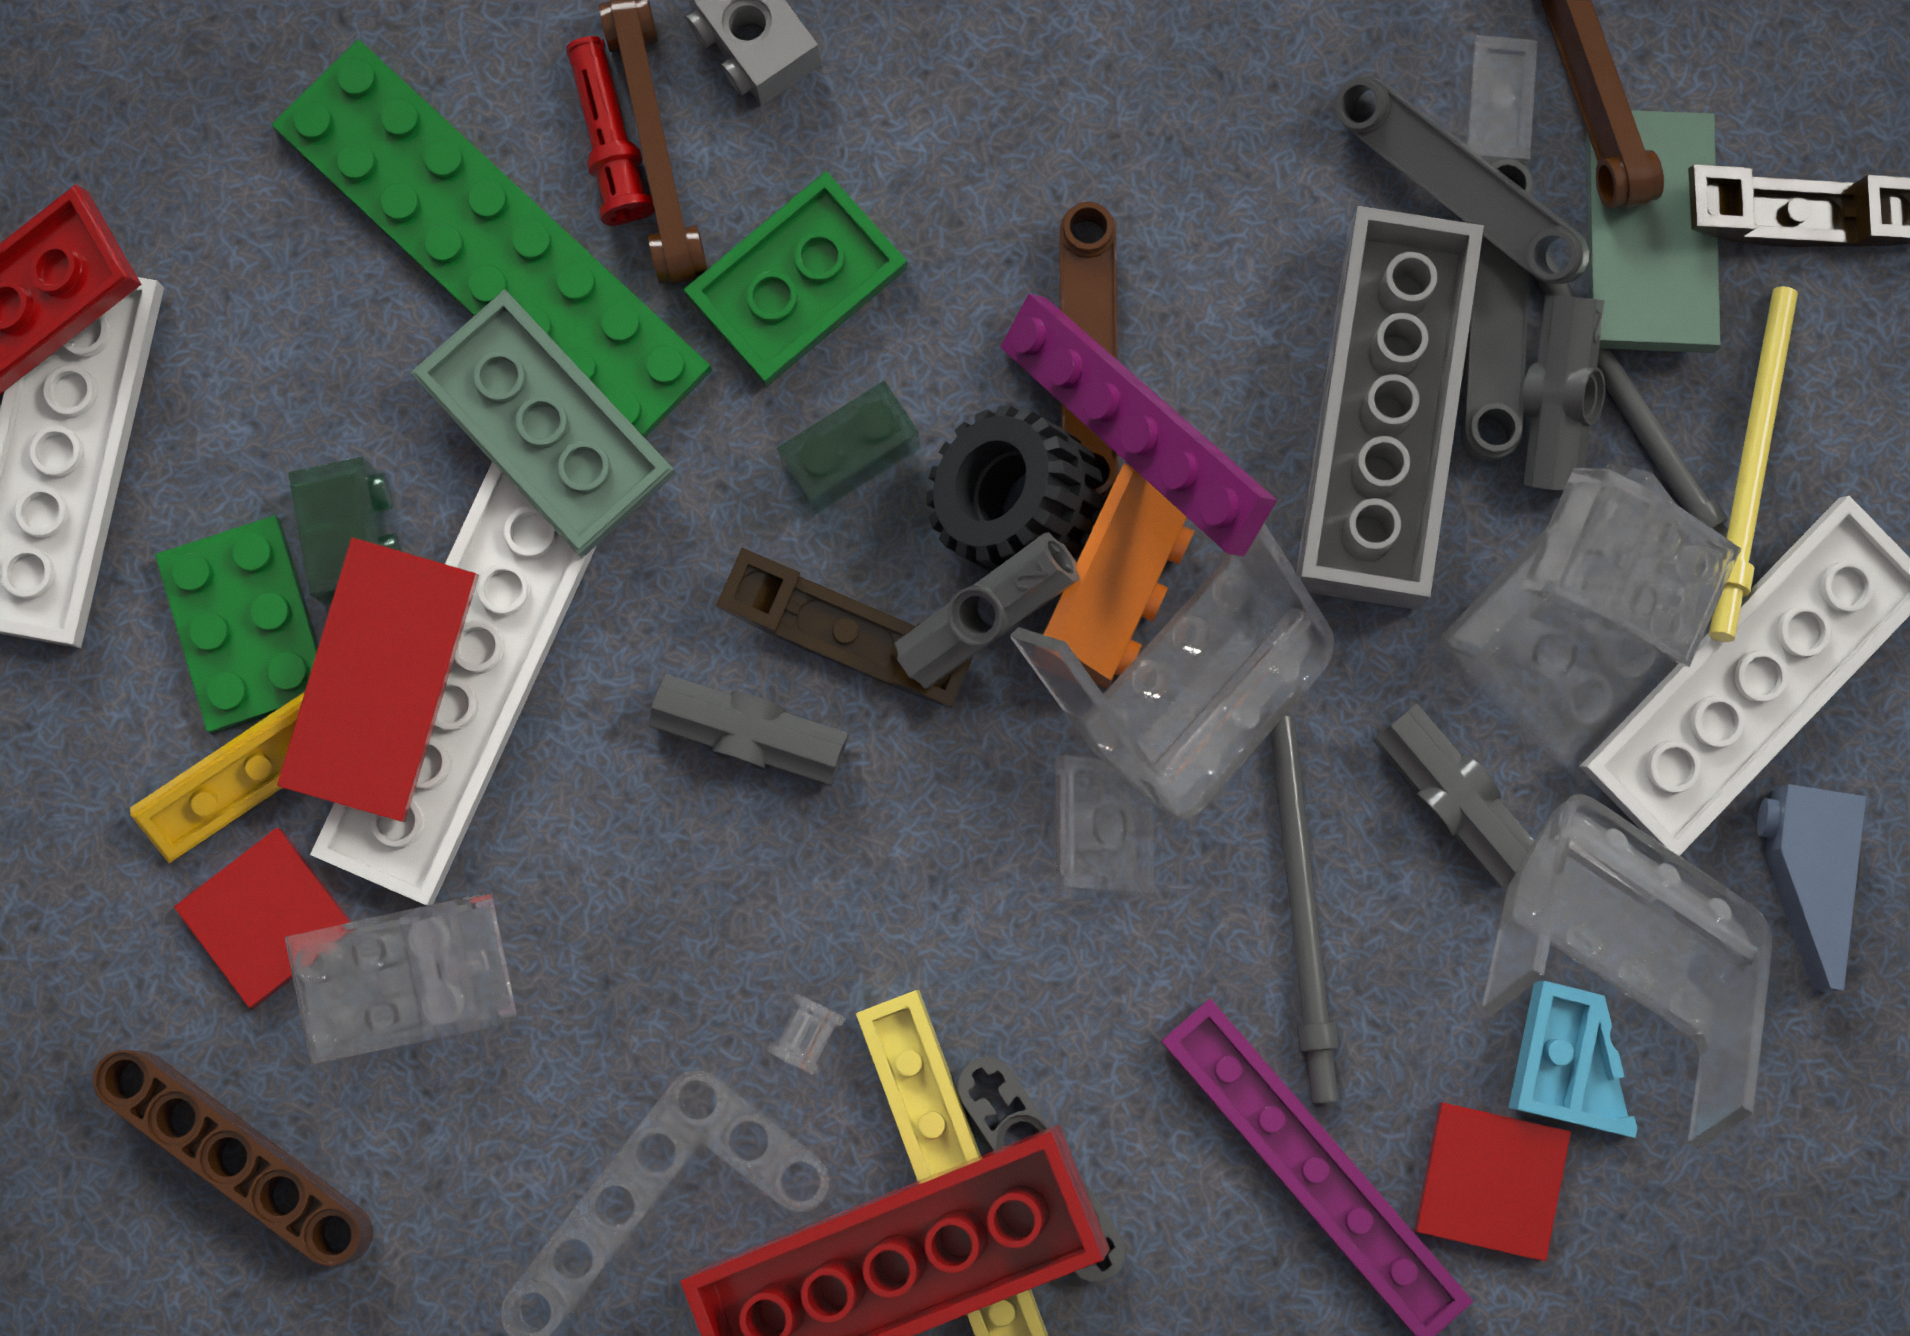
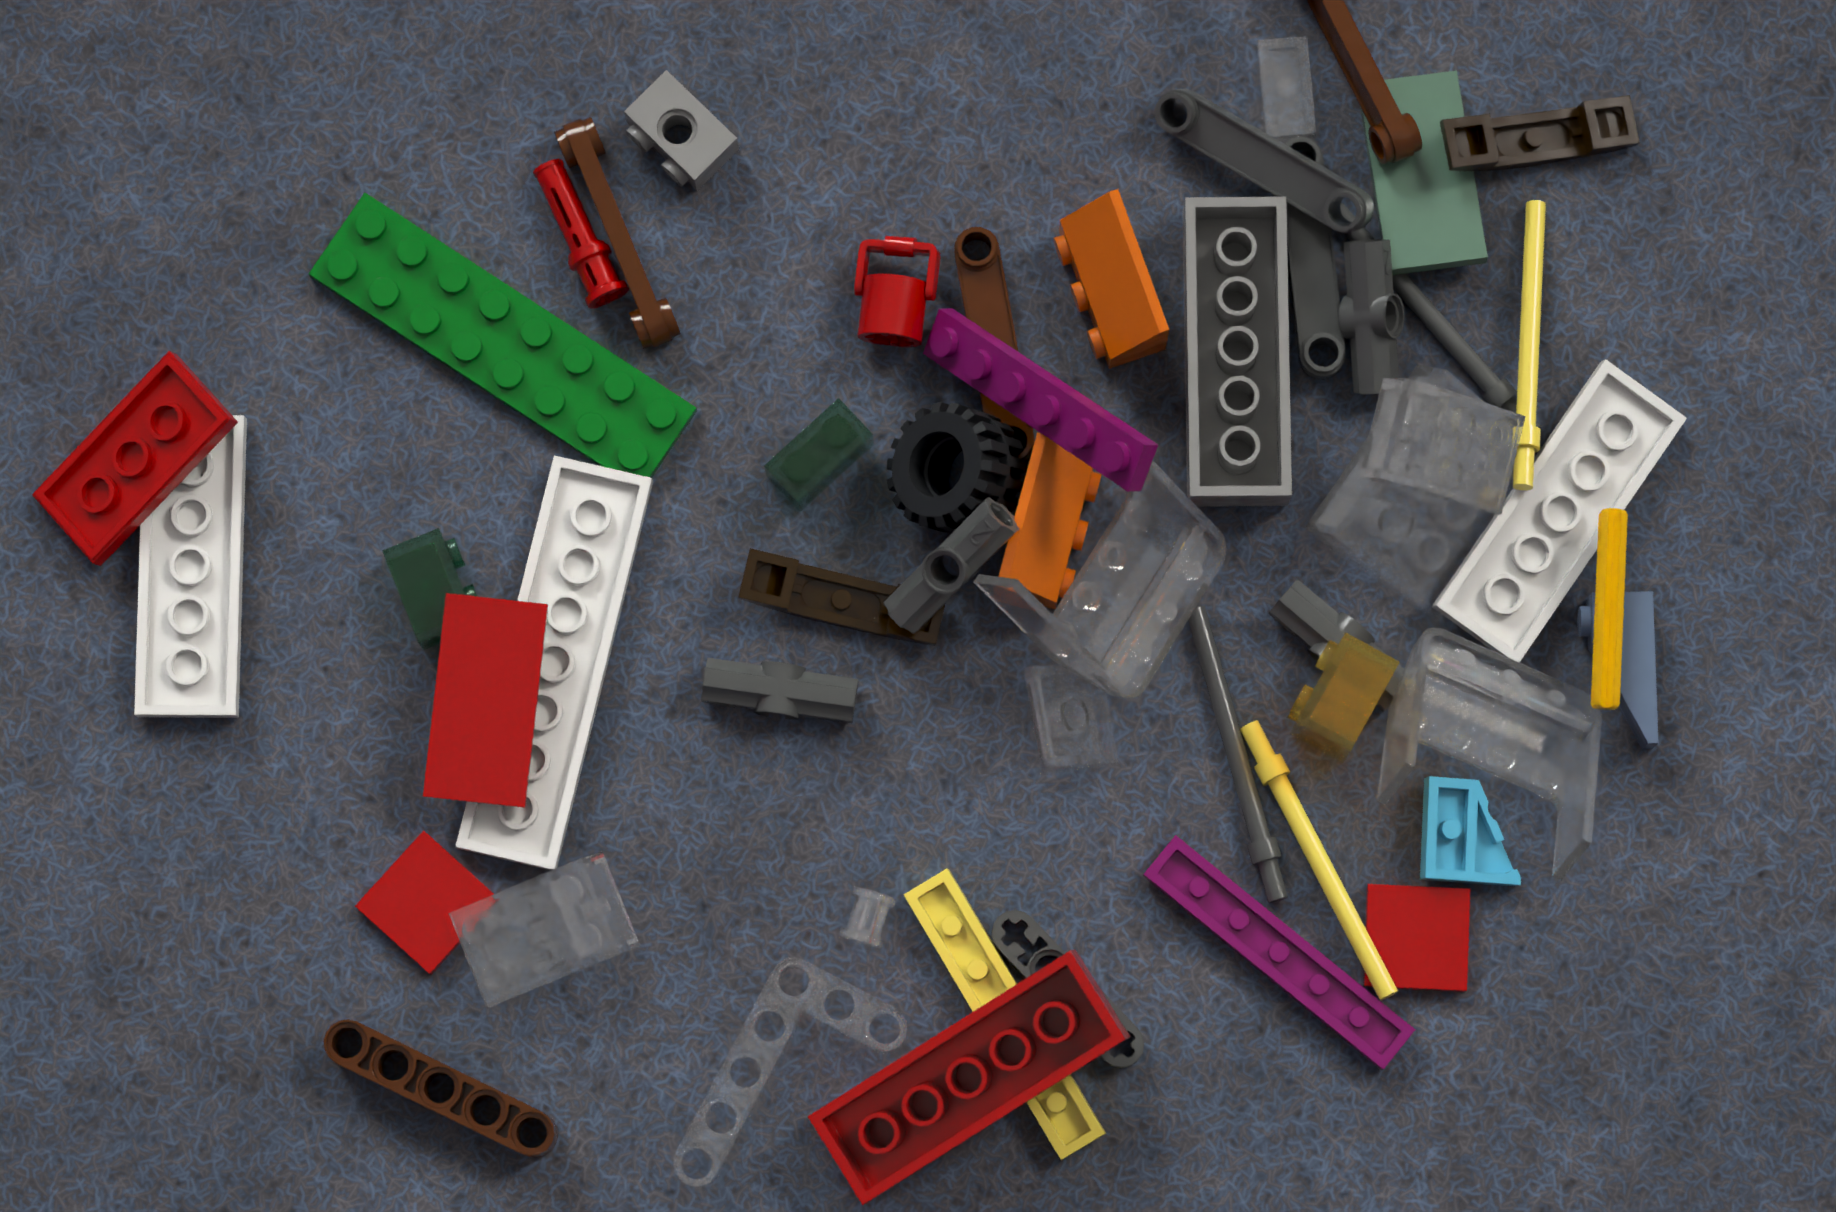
camera: 10 degrees left, 0 degrees up
(218, 786) = (375, 803): yellow tile -> none
(240, 622) = (363, 676): green plate -> none
(543, 423) = (574, 477): sand green tile -> none
(796, 278) = (751, 326): green plate -> none
(975, 276) = (894, 303): none -> red piece
(1249, 295) = (1112, 281): none -> orange slope
(1346, 938) = (1273, 772): none -> light yellow bar
(1454, 864) = (1343, 698): none -> clear yellow brick
(1809, 810) = (1609, 609): none -> yellow axle

